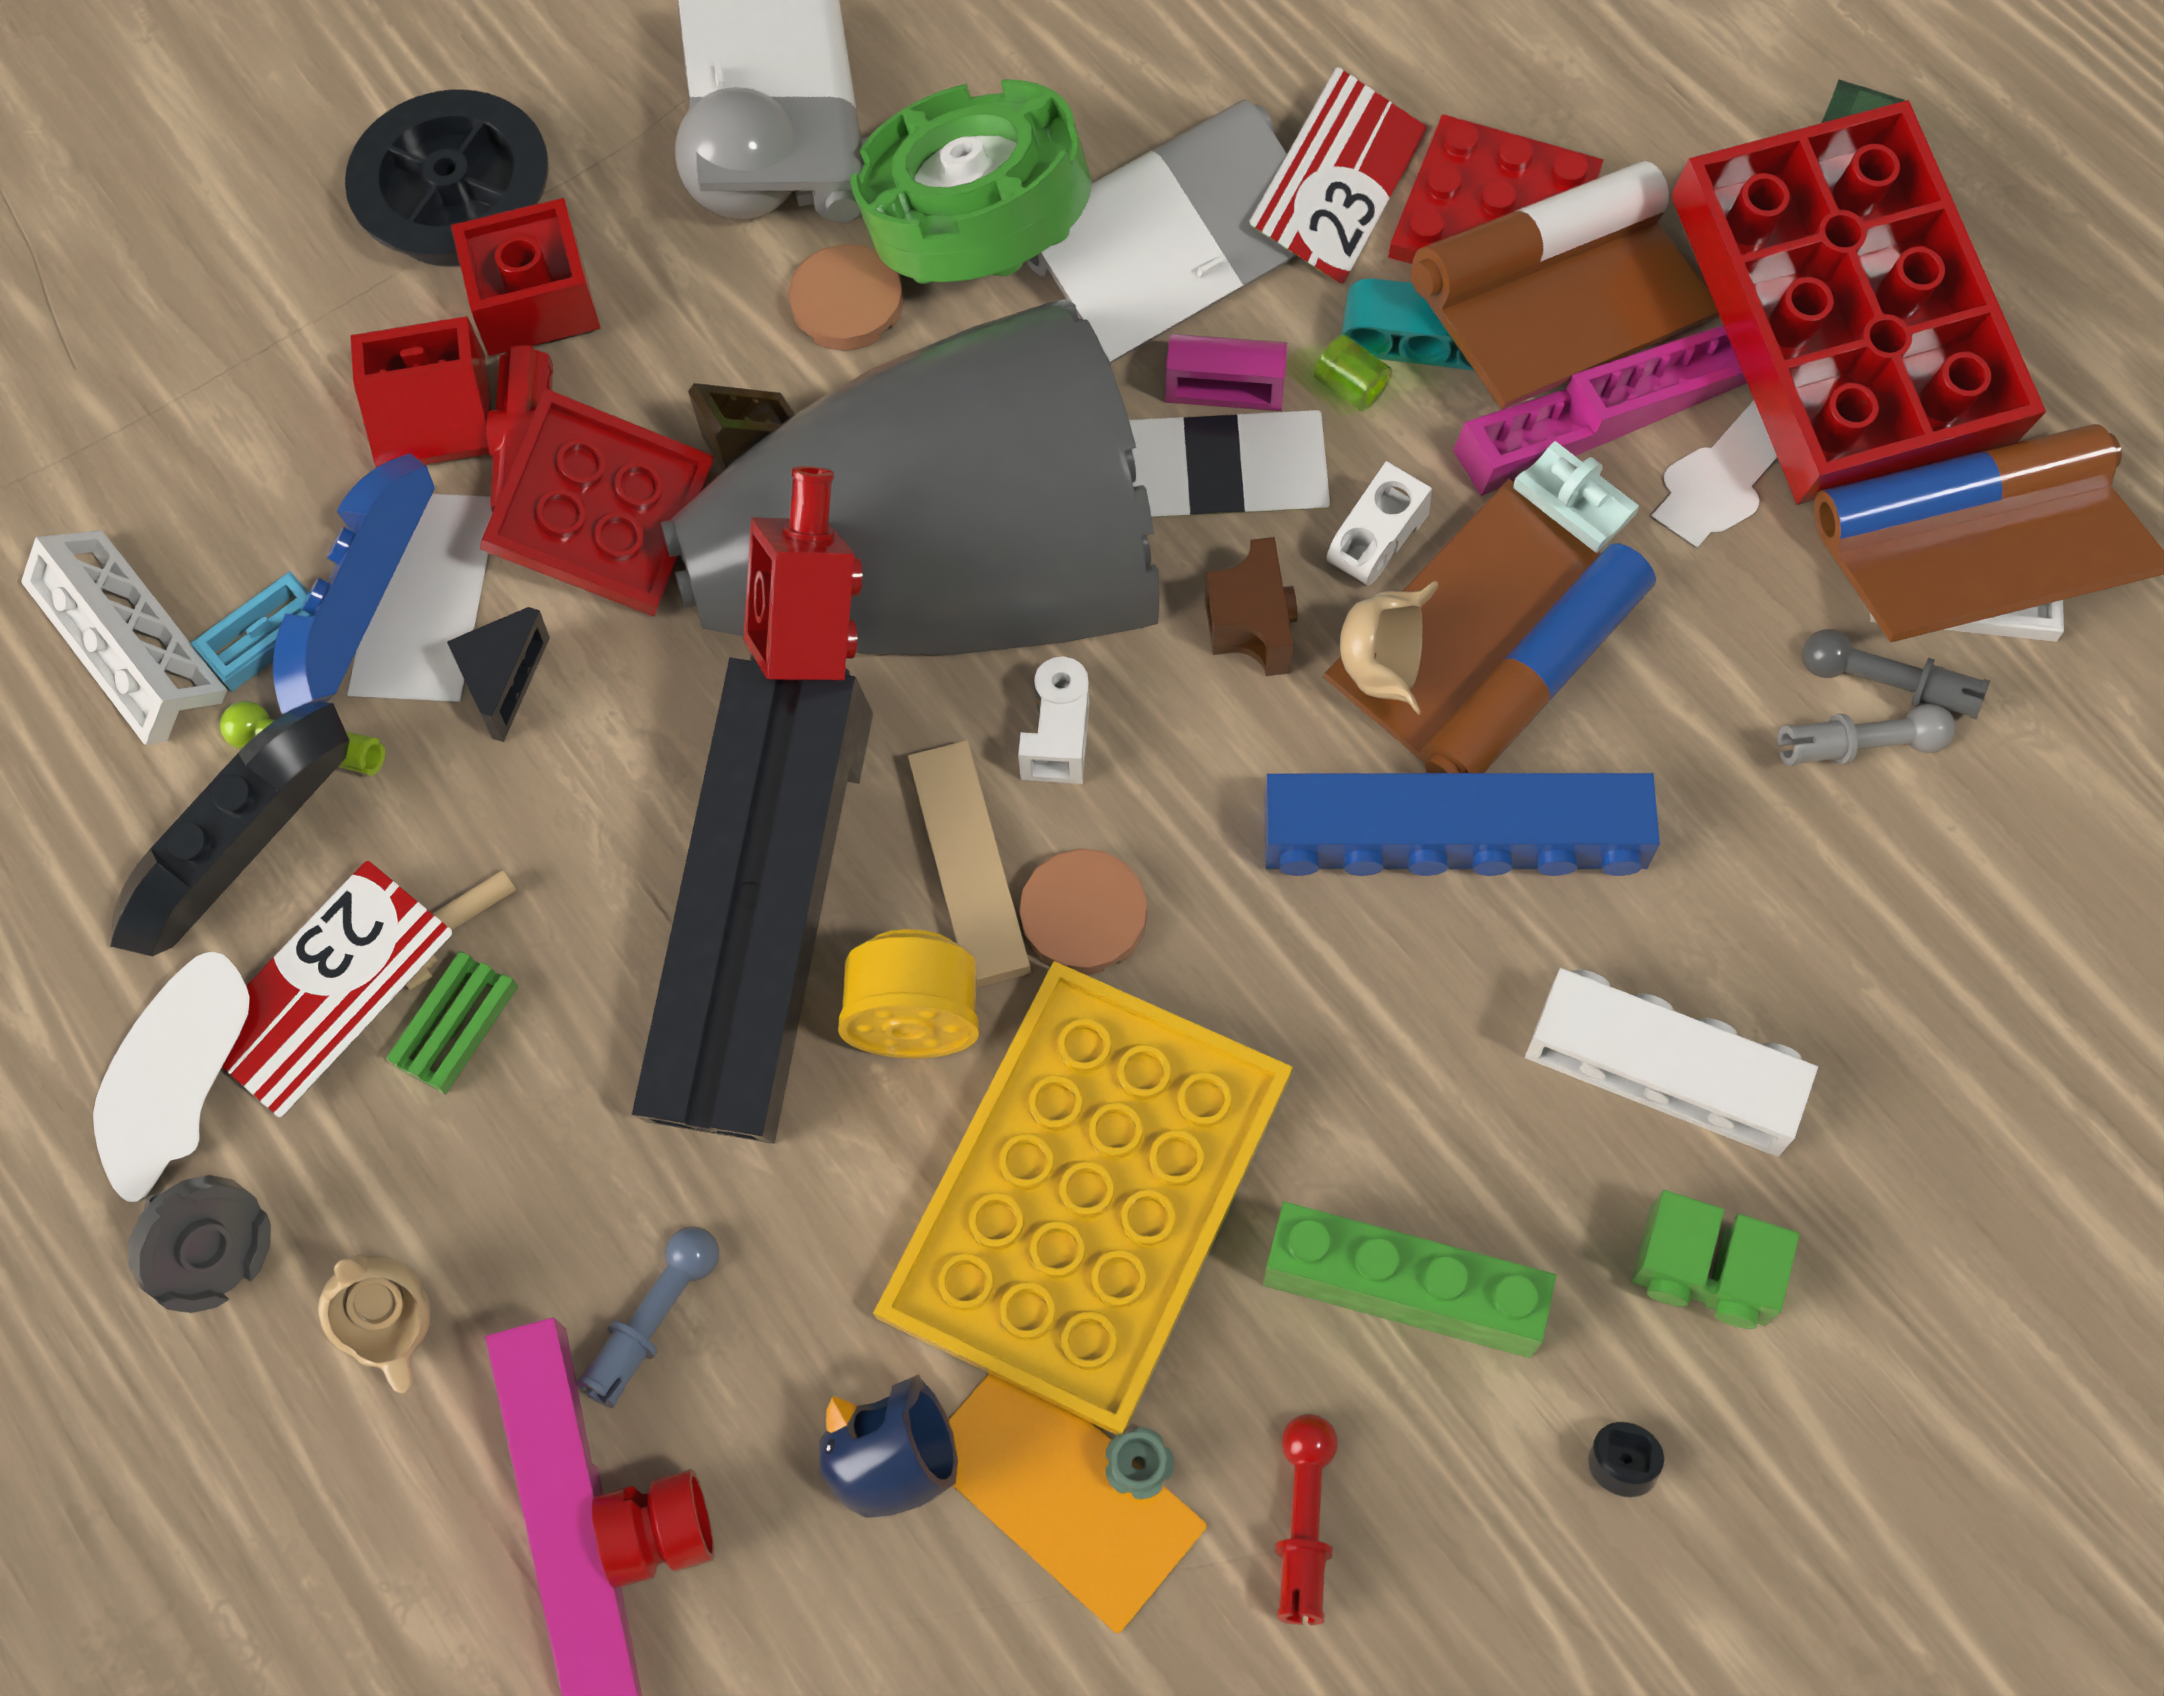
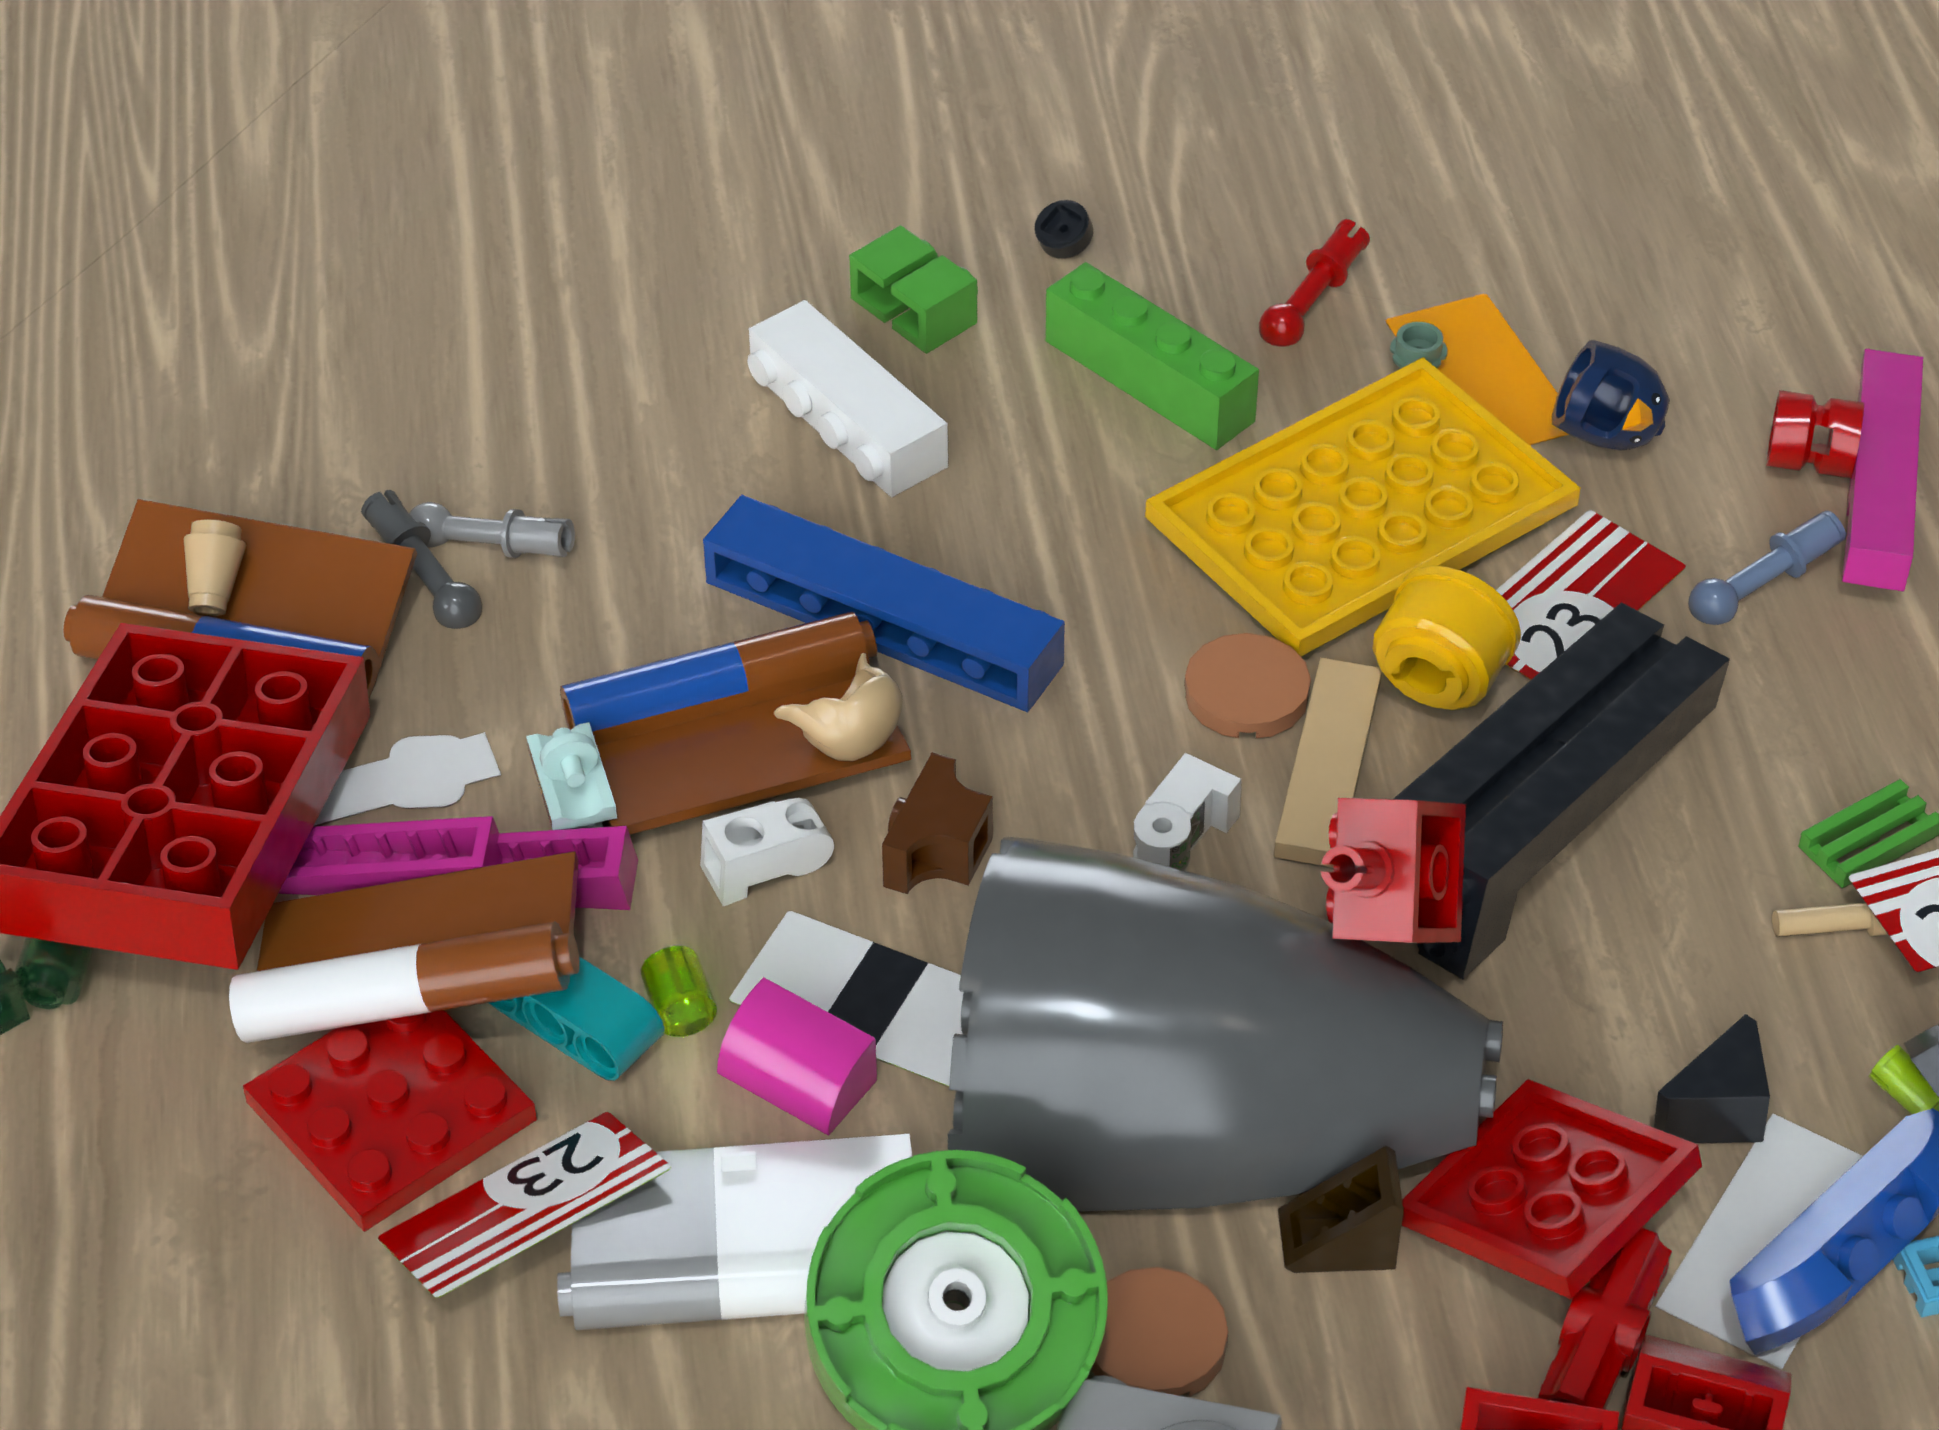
camera: 155 degrees left, 20 degrees down
(836, 1196) = (1578, 584): none -> sticker
(2043, 528) = (212, 564): none -> tan cone

